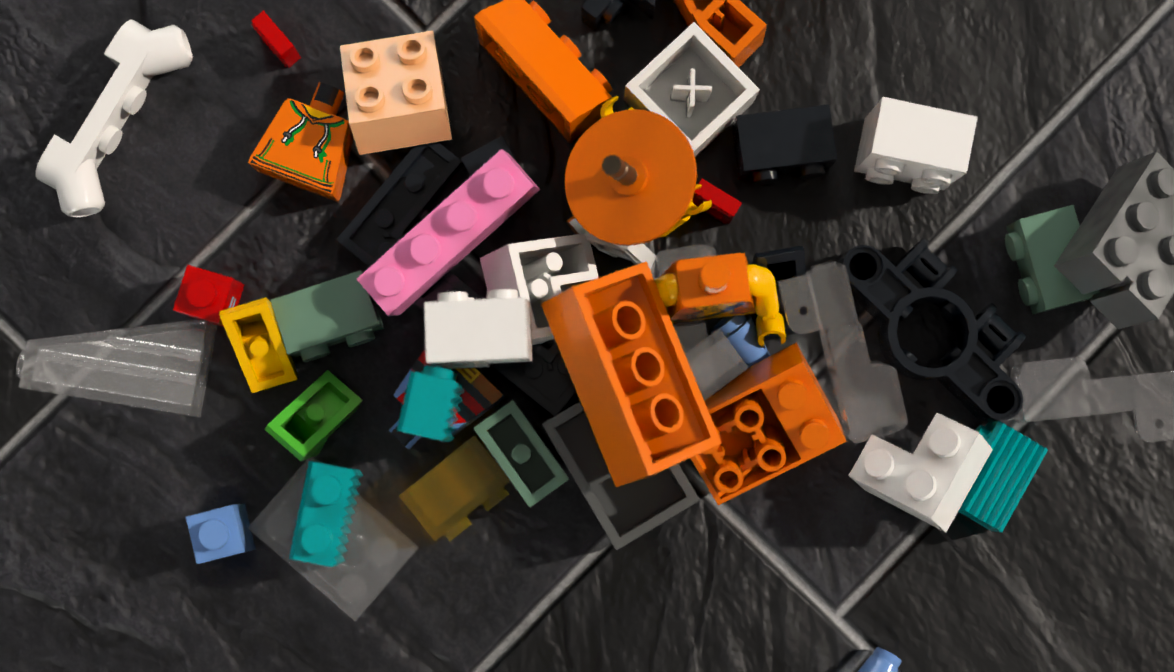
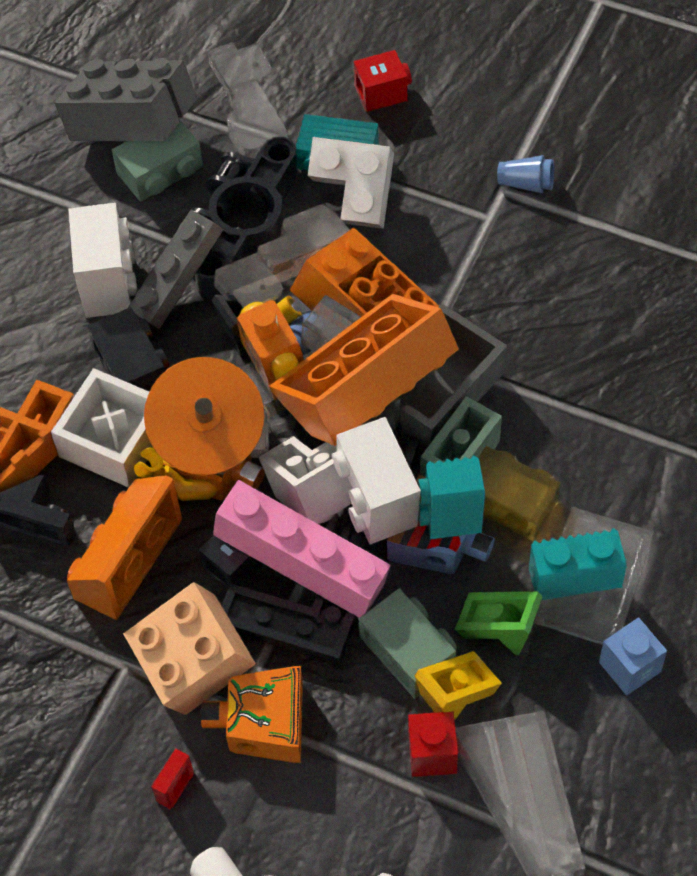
camera: 100 degrees left, 25 degrees down
(873, 225) = (175, 268): none -> dark grey plate
(1077, 567) = (381, 80): none -> red brick

